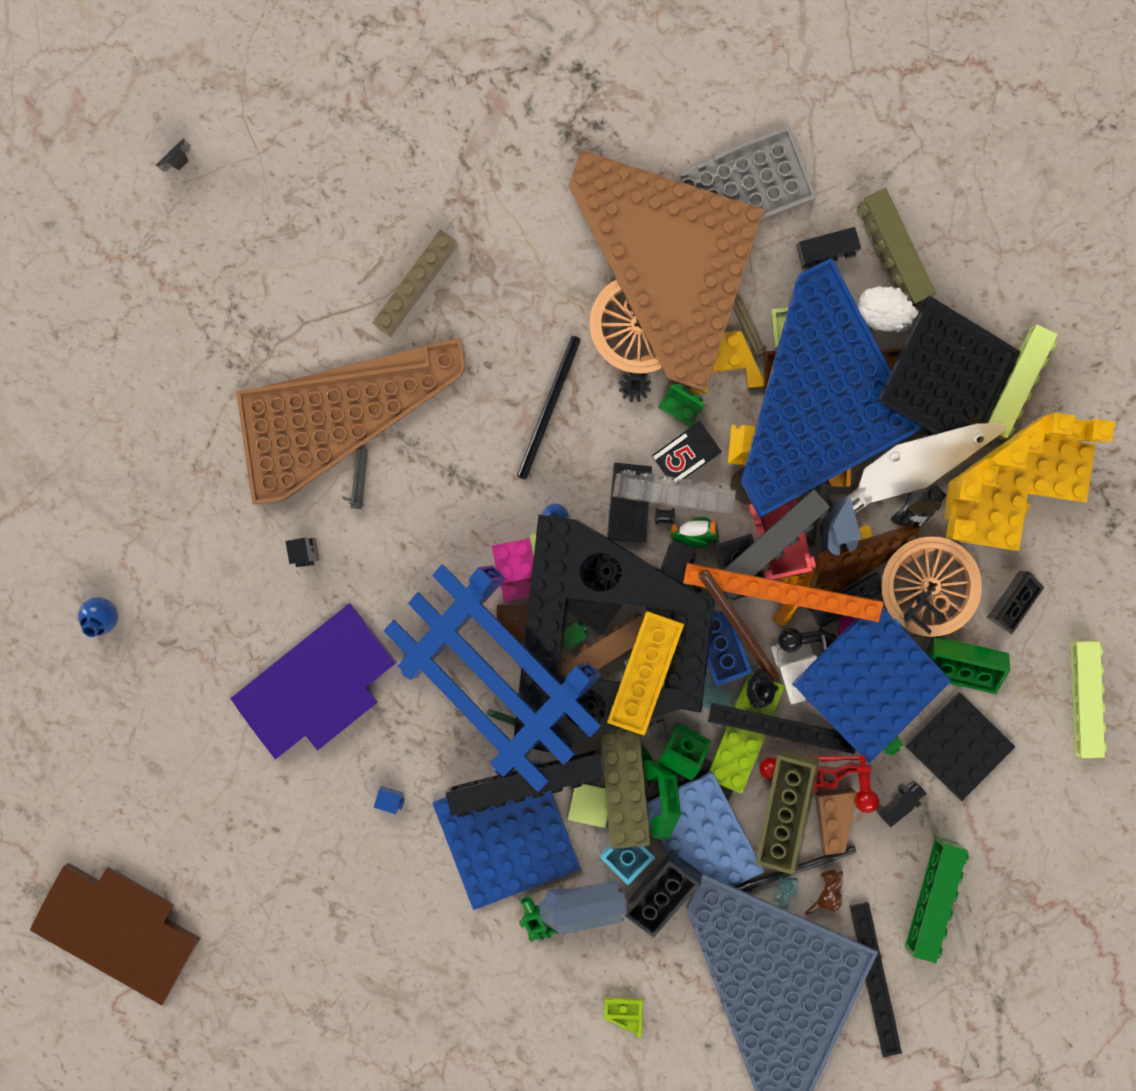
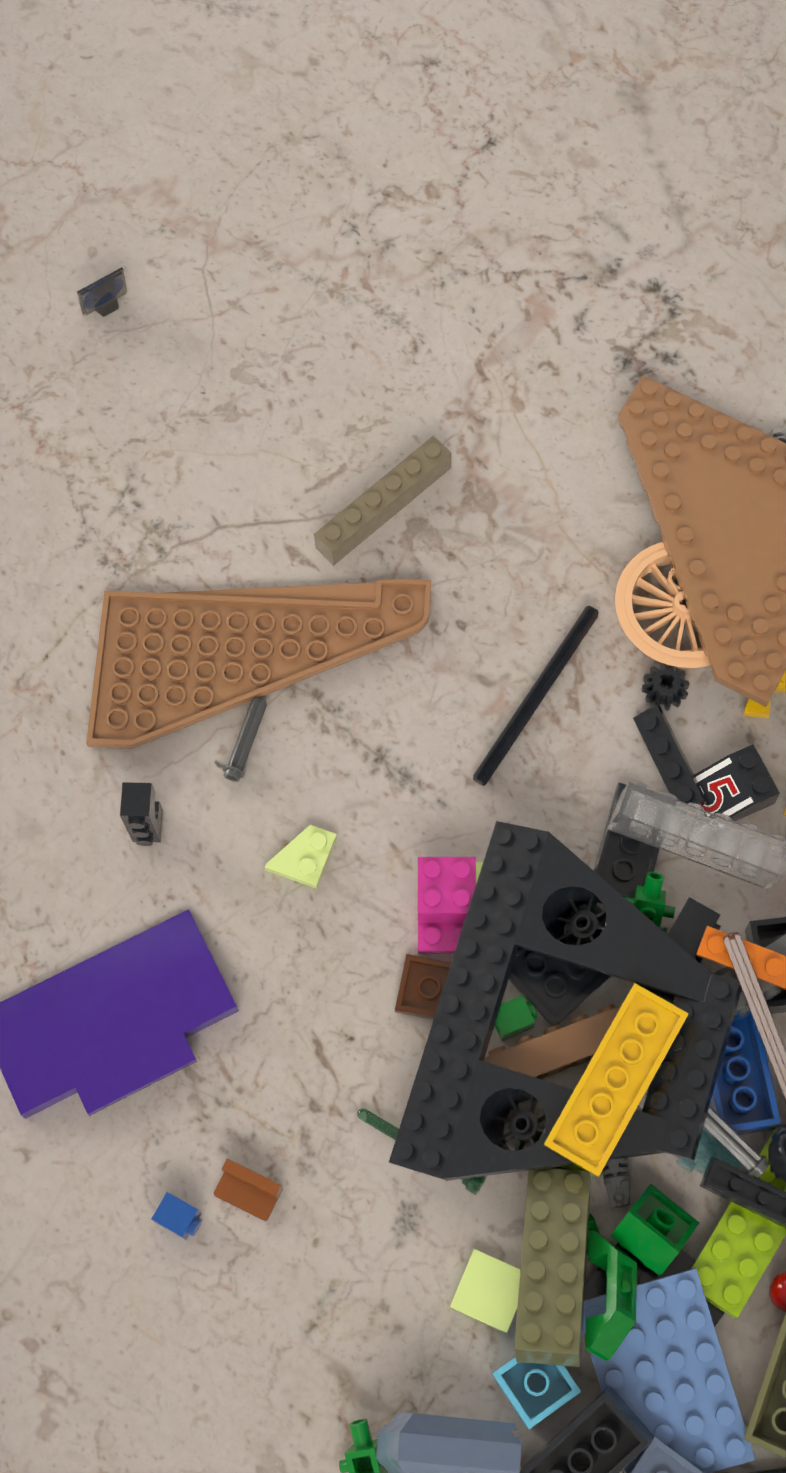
camera: 20 degrees right, 20 degrees down
(417, 552) = (304, 856): none -> yellowish green wing
(429, 774) = (248, 1190): none -> dark orange panel
(445, 631) = (436, 1125): blue fence -> none
(498, 790) = (397, 1222): black brick -> none
(508, 847) = (347, 1316): blue plate -> none
(646, 438) = (668, 756): none -> black plate
(648, 546) = (652, 899): none -> green piece
(665, 516) = (680, 873): black bush -> none
(681, 404) = (730, 720): green bracket -> none
(696, 532) = (729, 900): animal -> none
(726, 693) = (735, 1144): none -> axle

